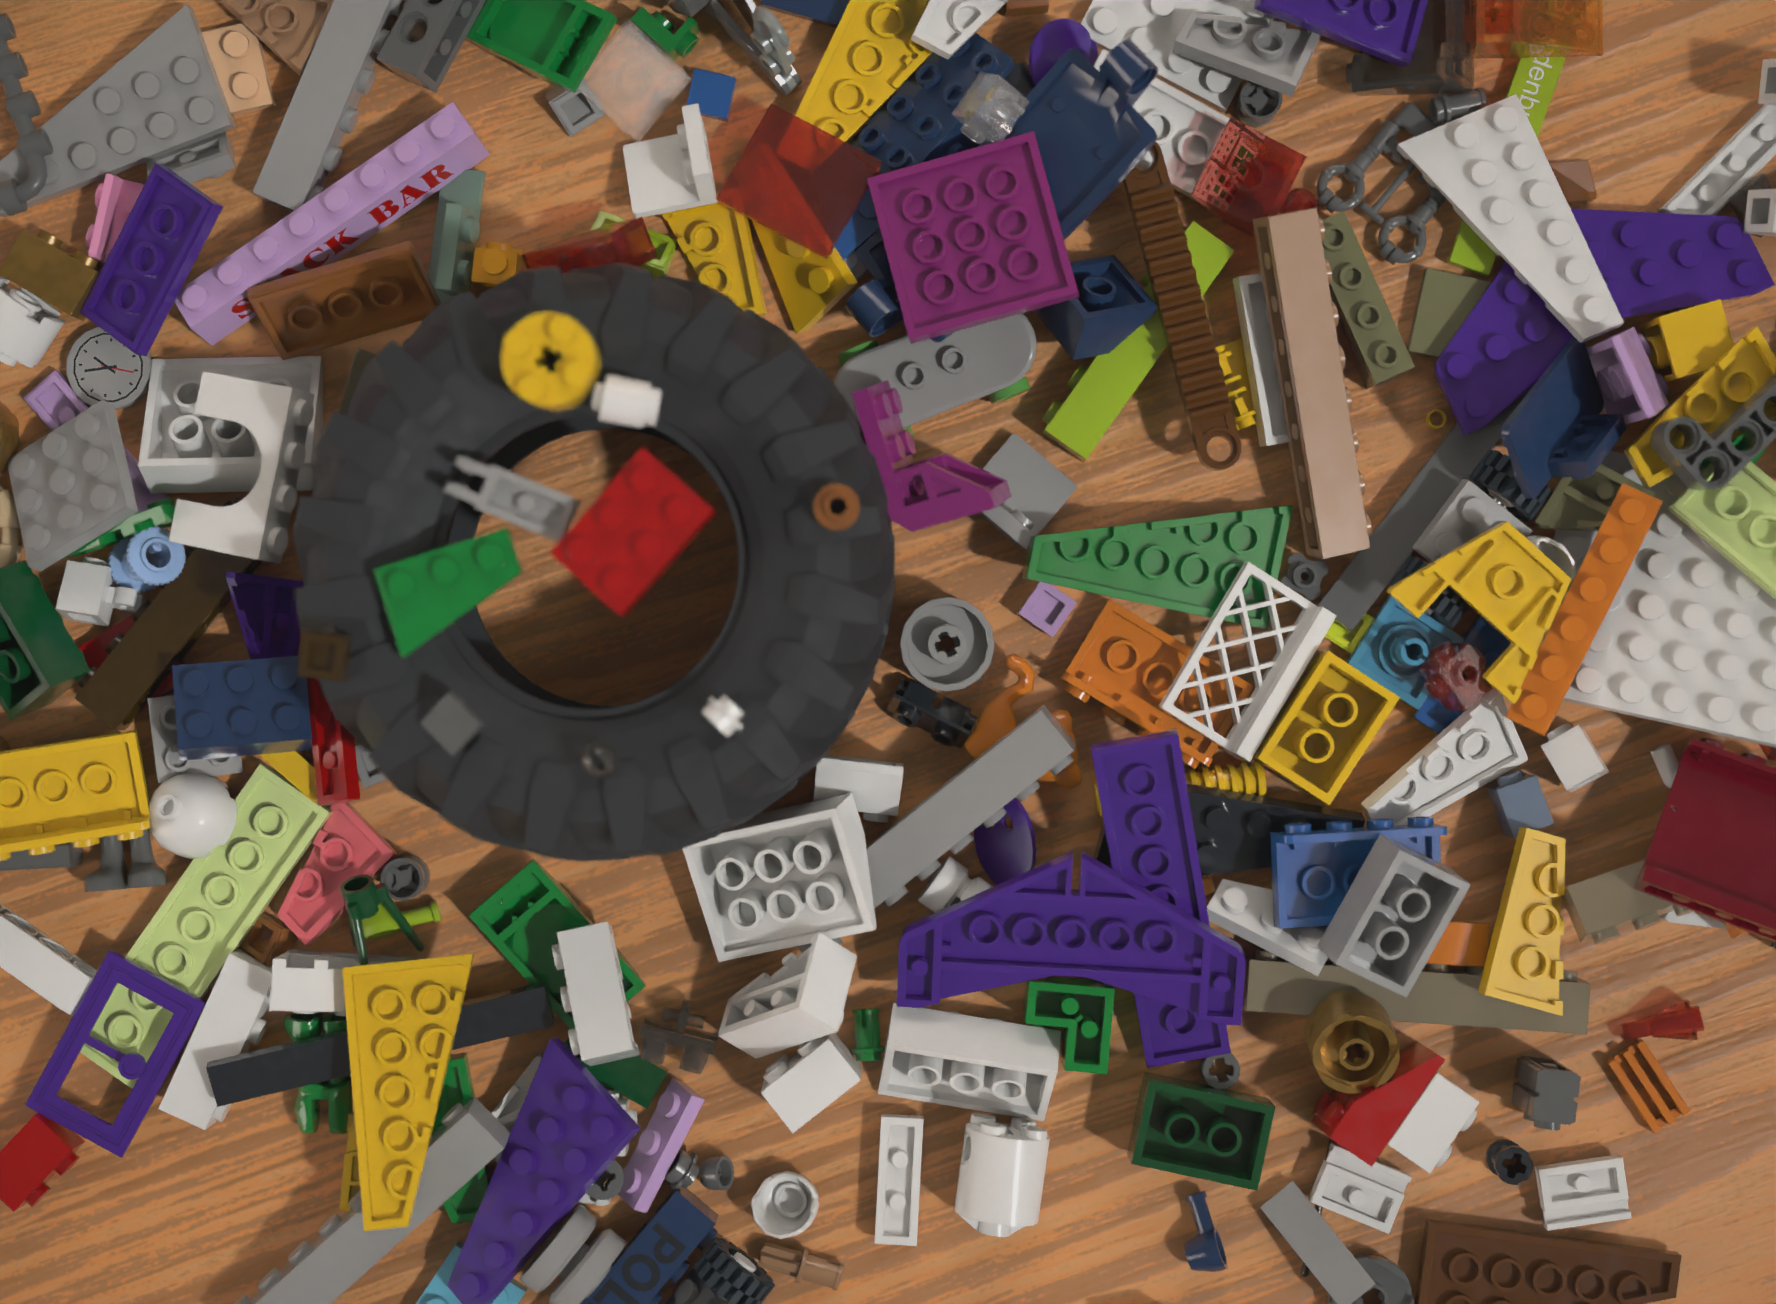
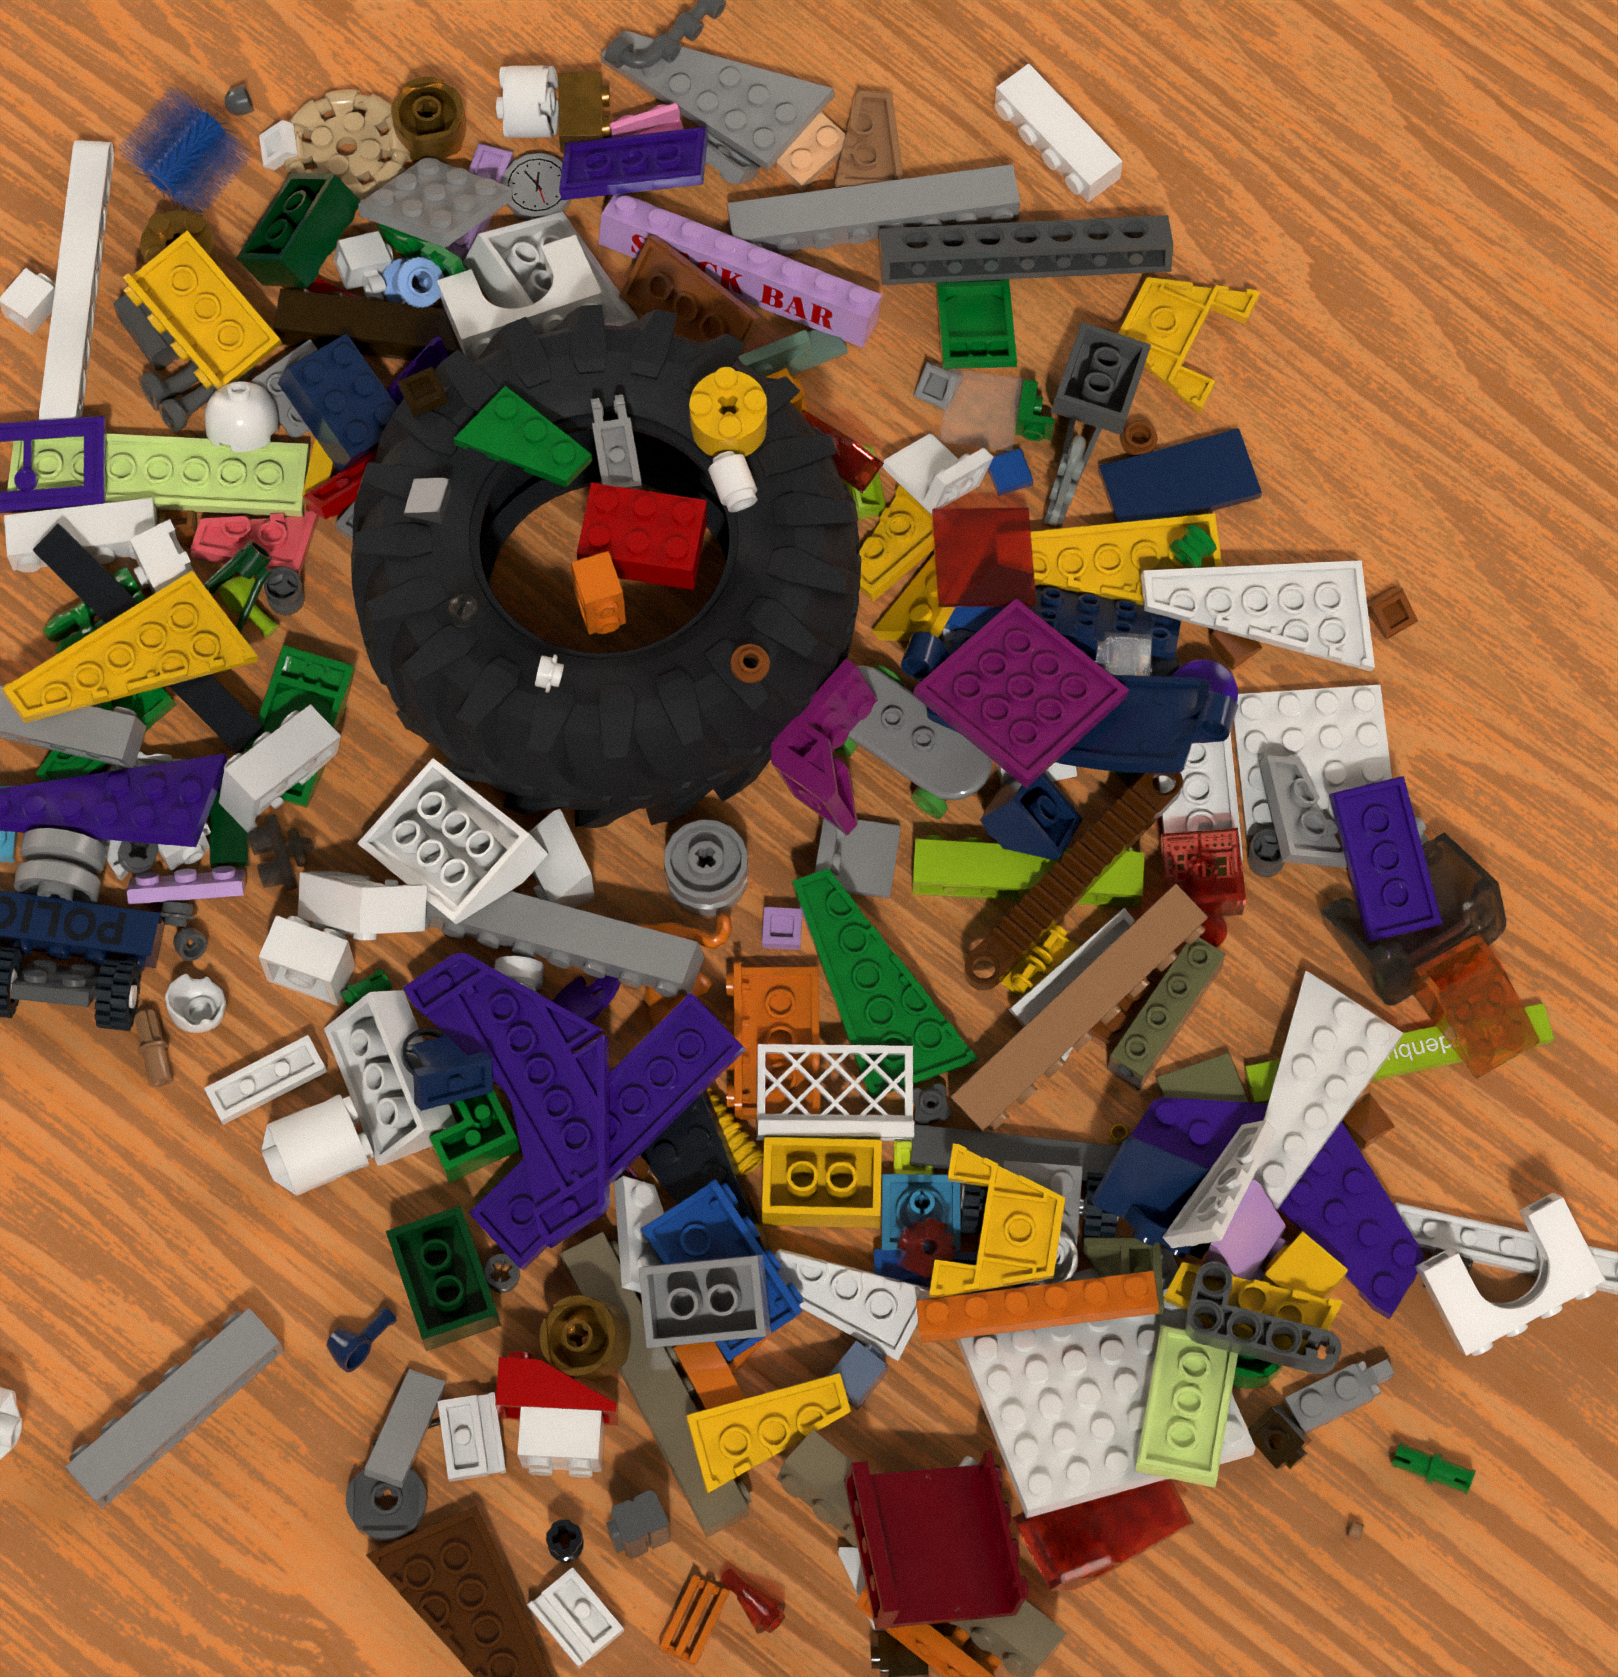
camera: 60 degrees right, 20 degrees down
(677, 618) = (598, 593): none -> orange brick
(948, 724) = (643, 876): black hinge -> none
(1021, 1020) = (447, 1072): none -> dark blue piece
(1415, 123) = (1334, 976): dark grey piece -> none
(1453, 106) = (1364, 996): dark grey pin -> none
(1573, 756) = (920, 1390): white brick -> none
(1599, 377) = (1223, 1188): none -> white wing

